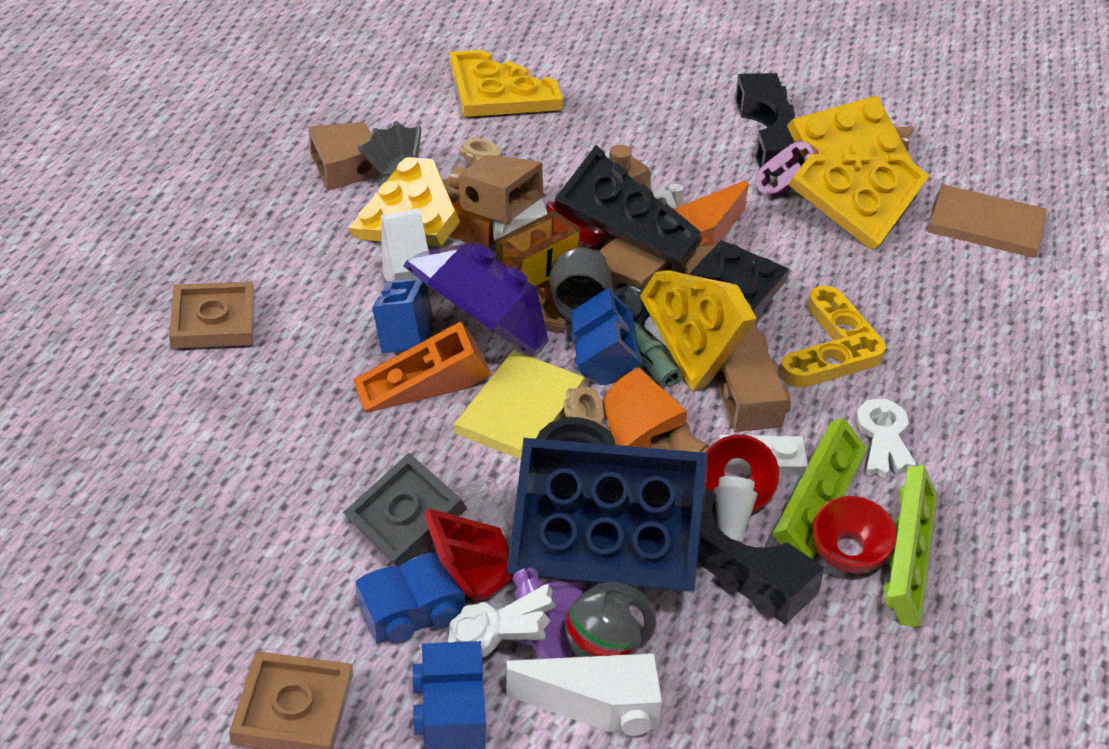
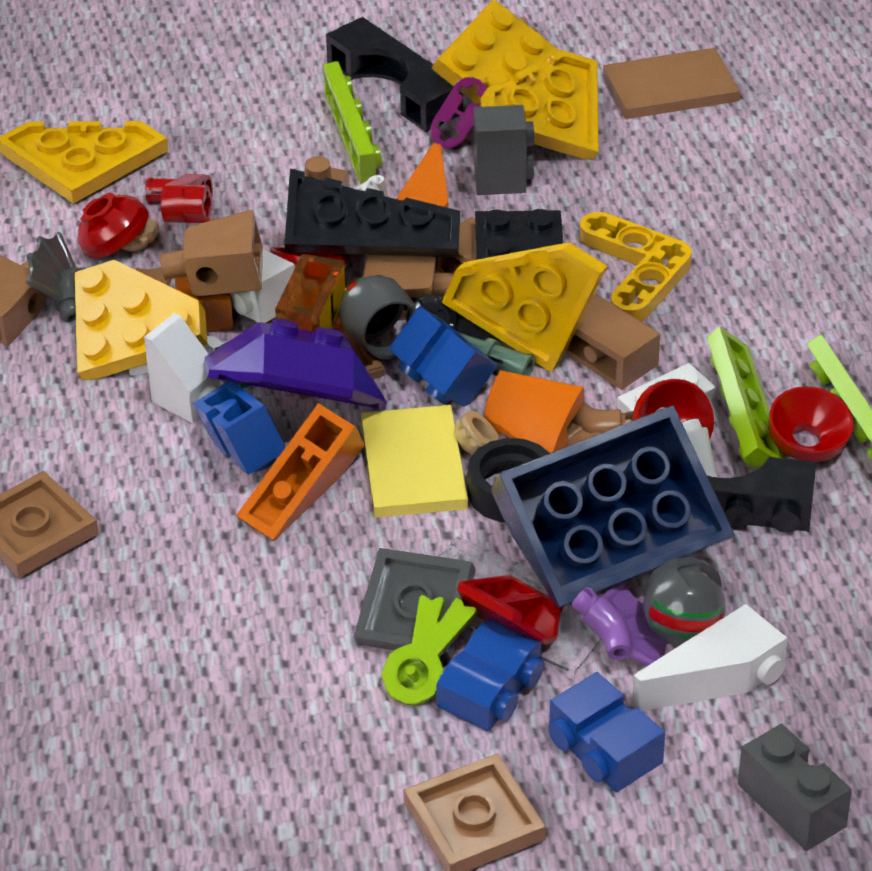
camera: 30 degrees left, 0 degrees up
(358, 556) = (415, 668): none -> lime piece
(464, 136) = (110, 224): none -> red piece
(516, 621) = (611, 637): white piece -> none
(529, 141) = (182, 199): none -> red beam
(703, 145) = (349, 120): none -> lime plate
(791, 206) = (501, 149): none -> dark grey brick
(885, 424) = (746, 317): white piece -> none

